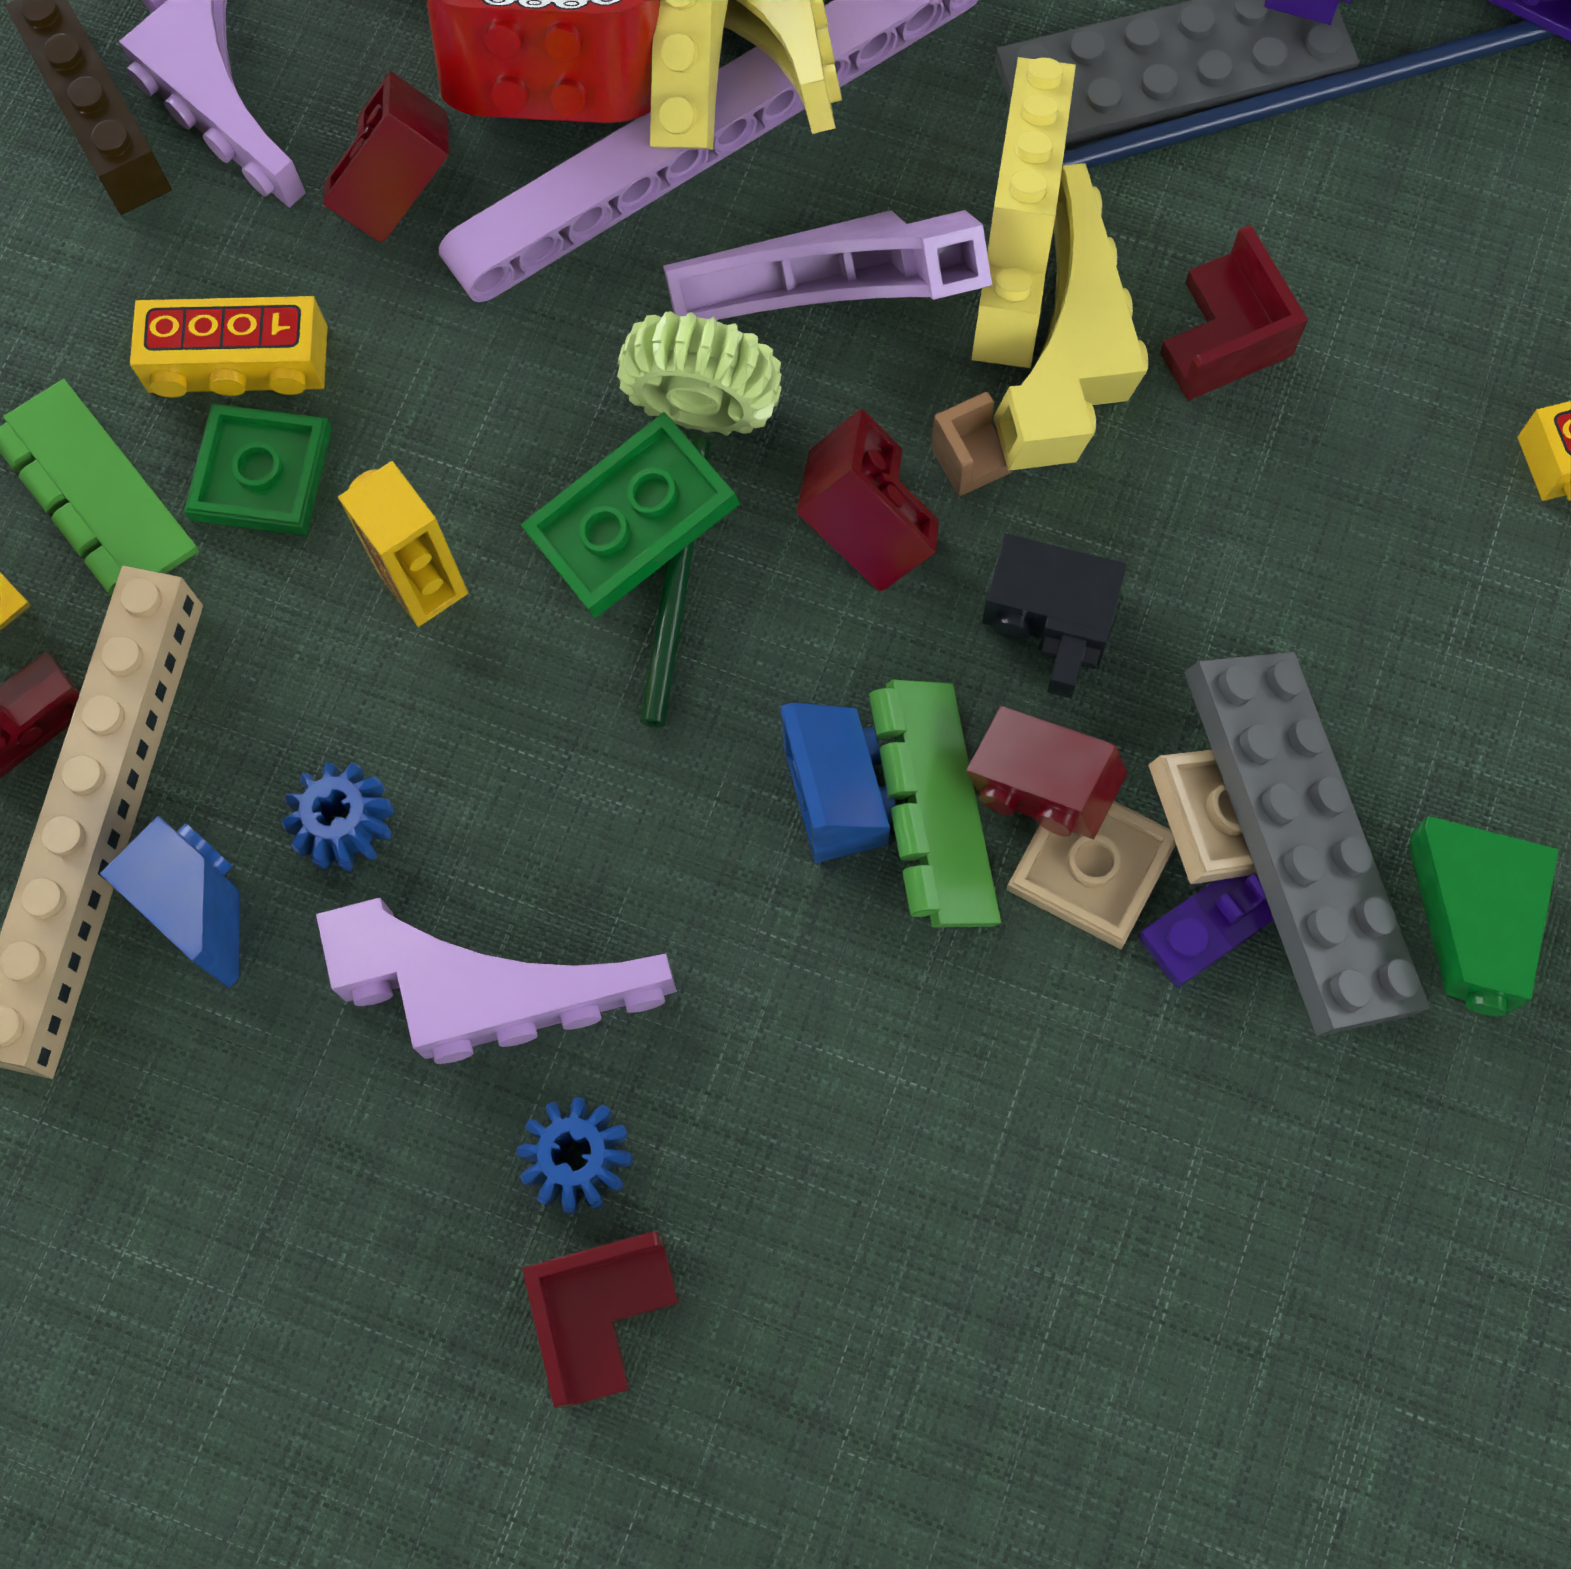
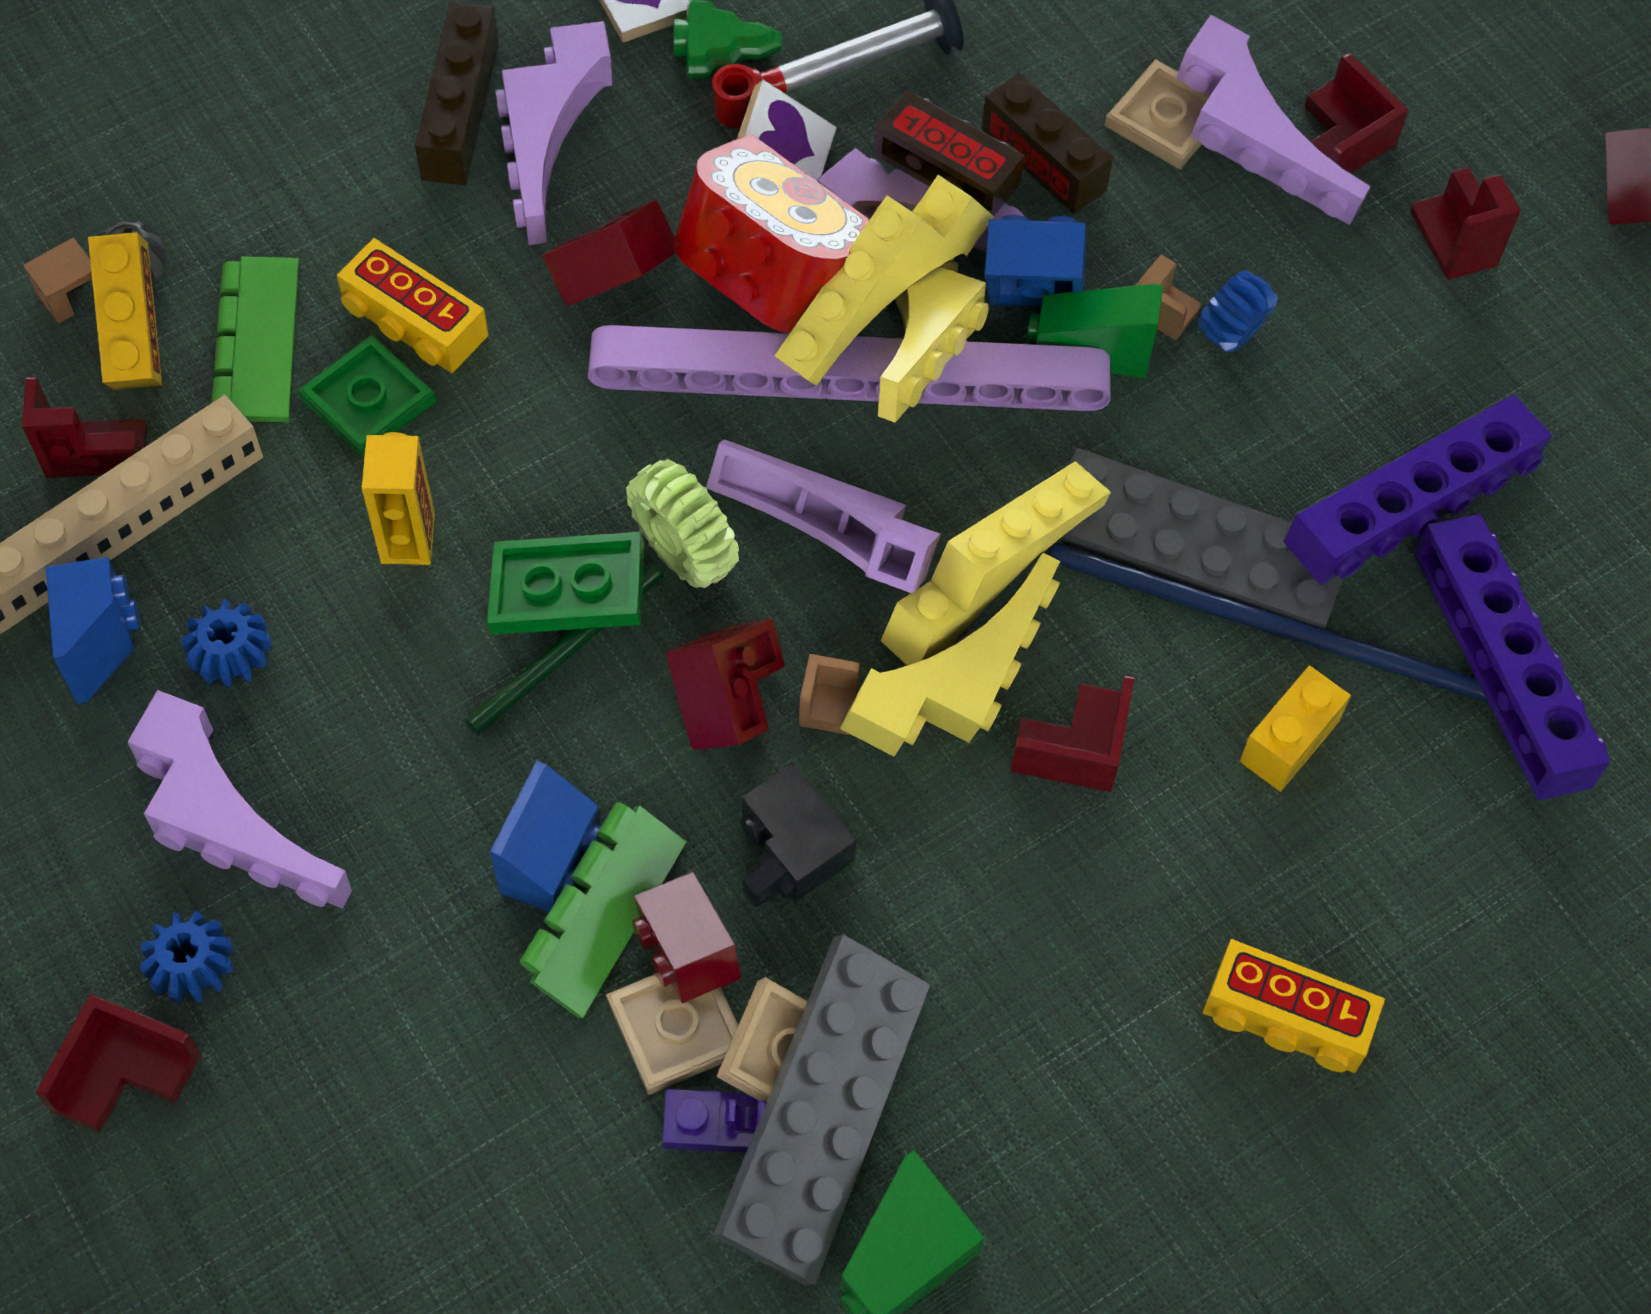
camera: 30 degrees right, 10 degrees down
(1418, 175) = (1294, 728): none -> yellow brick

